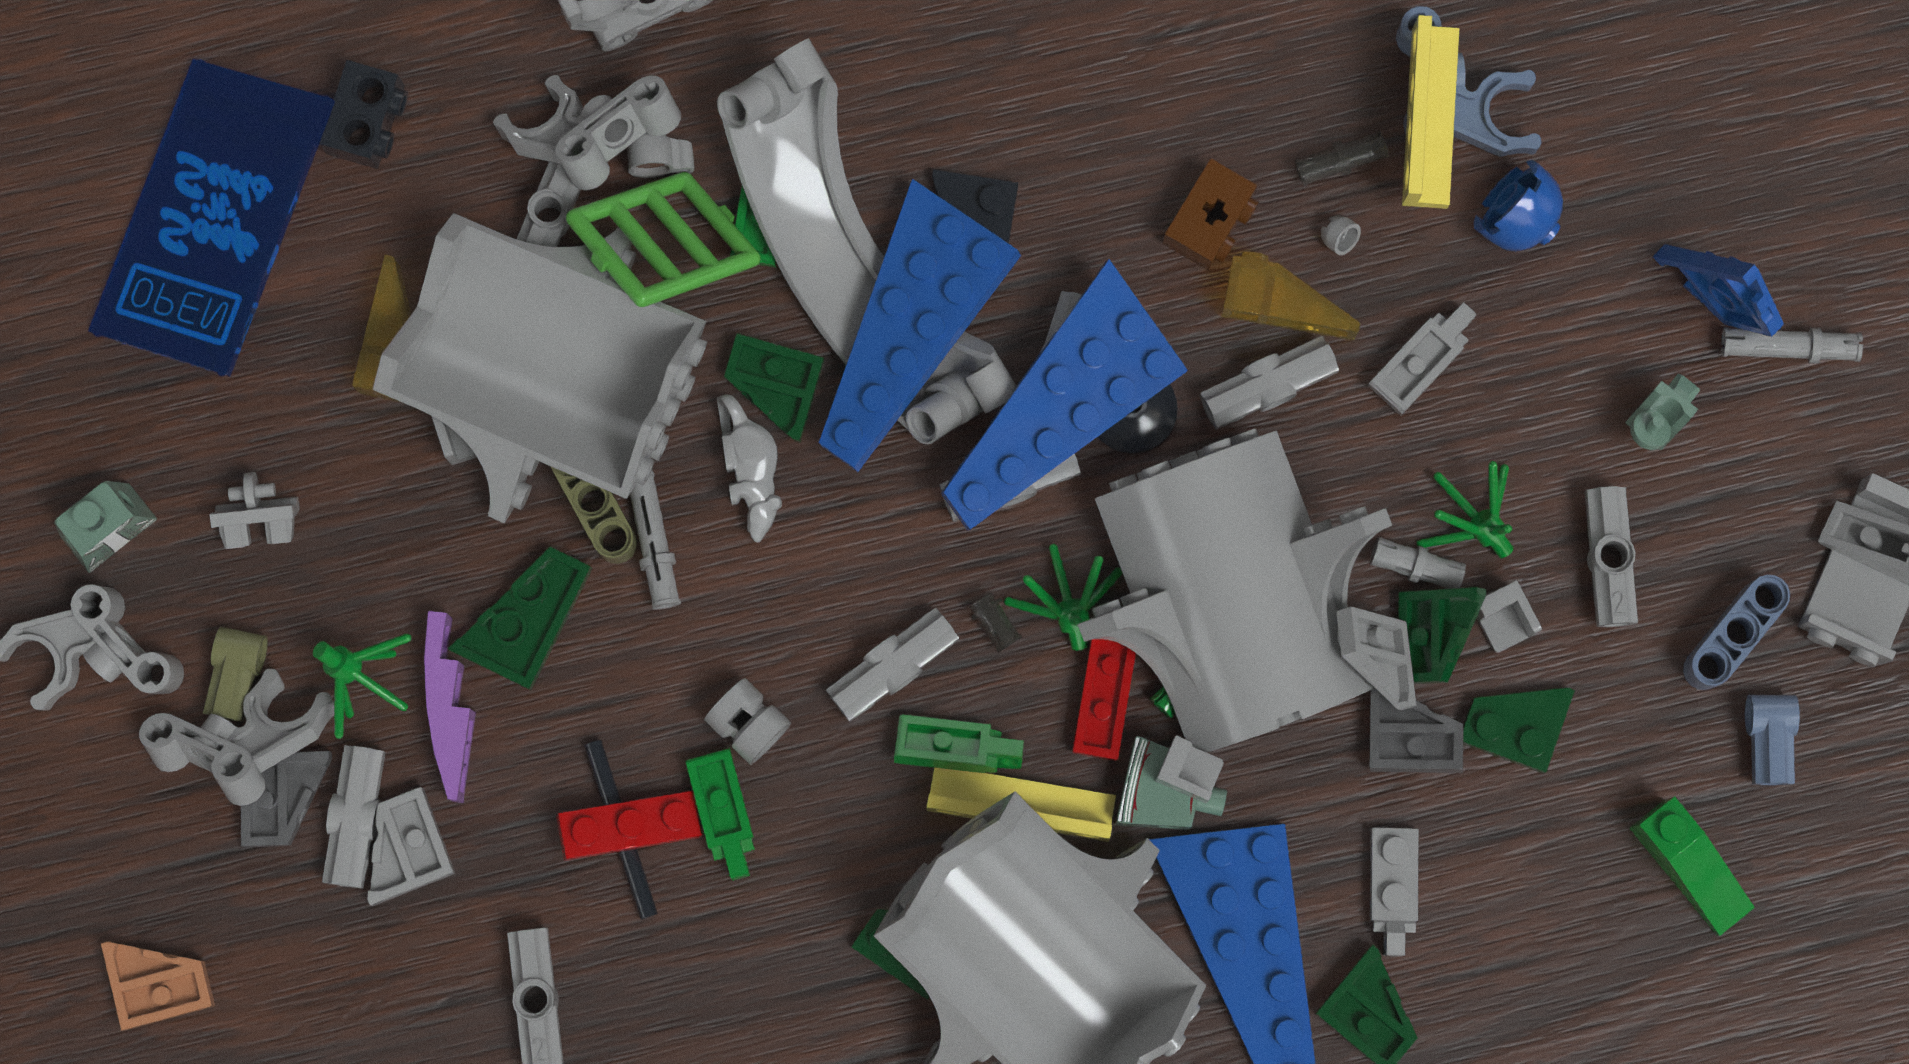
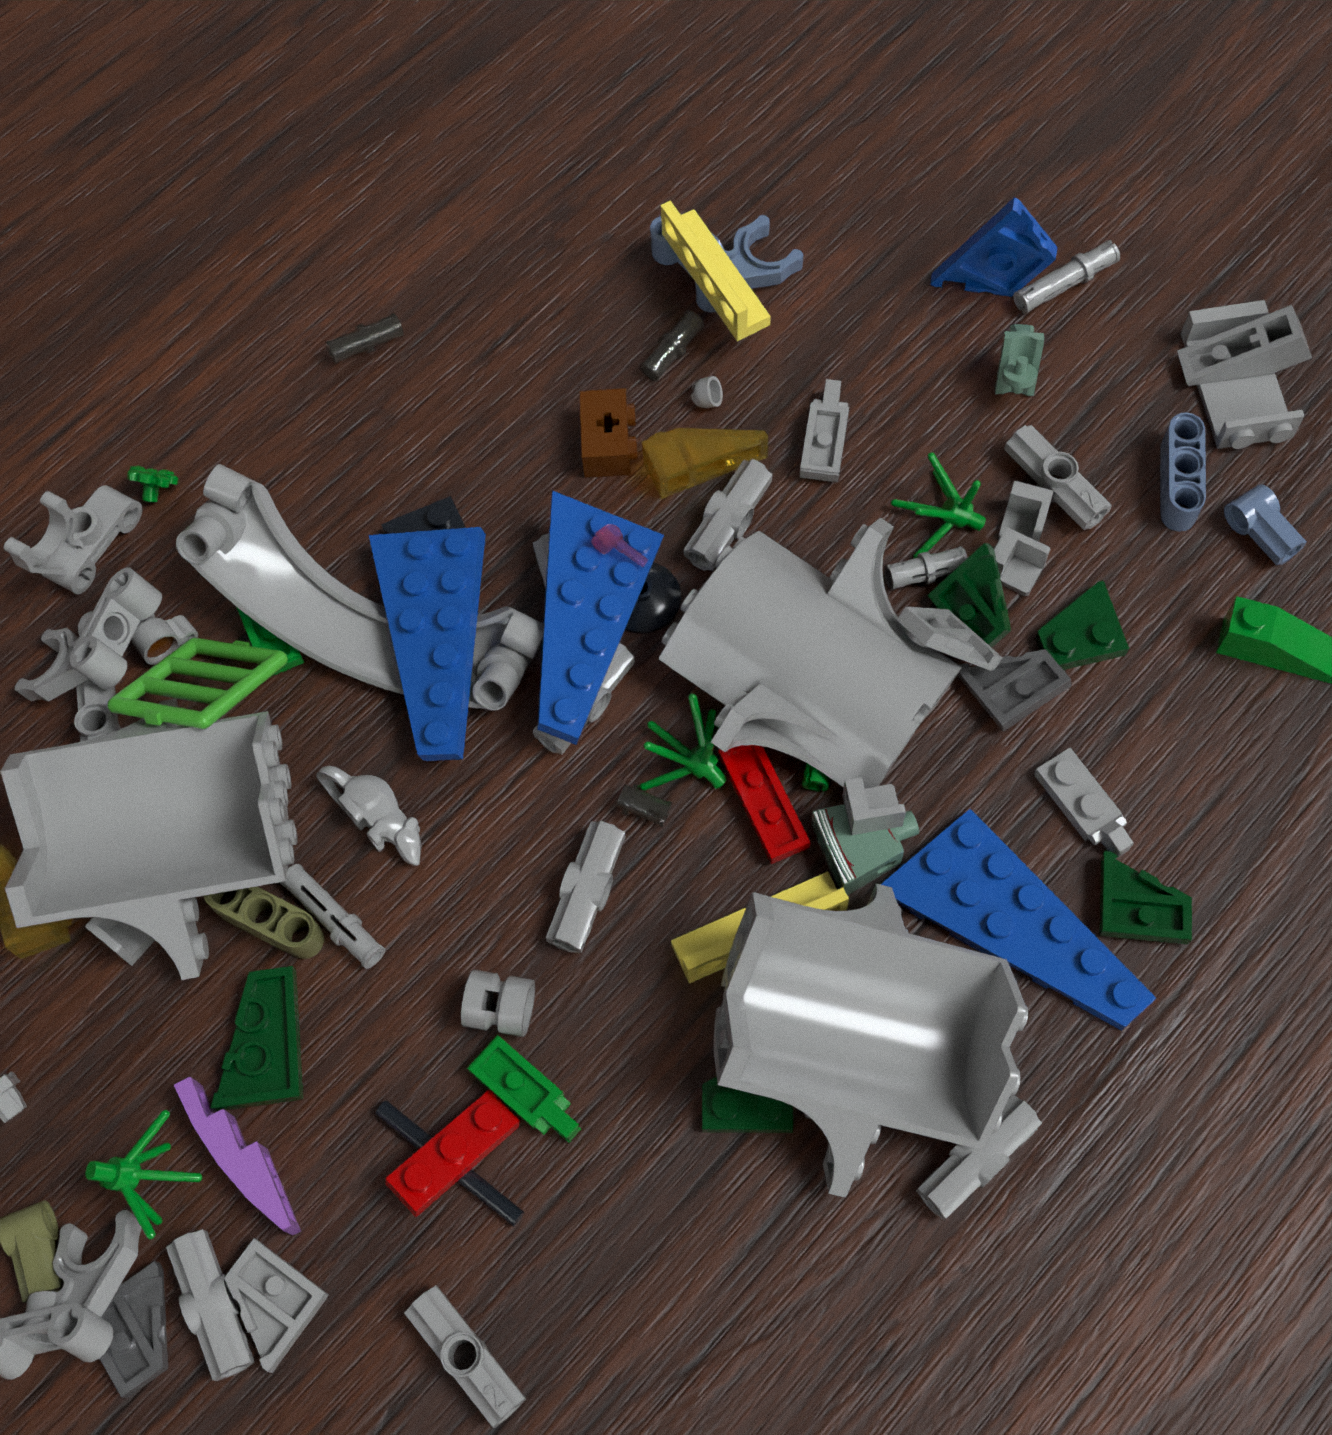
camera: 30 degrees left, 15 degrees down
(775, 381) = (355, 739): dark green wing -> none
(955, 745) = (677, 915): green hinge -> none
(1129, 349) = (611, 537): none -> hand
(1522, 209) = (822, 299): blue cylinder -> none
(1550, 575) = (1027, 510): none -> light grey panel

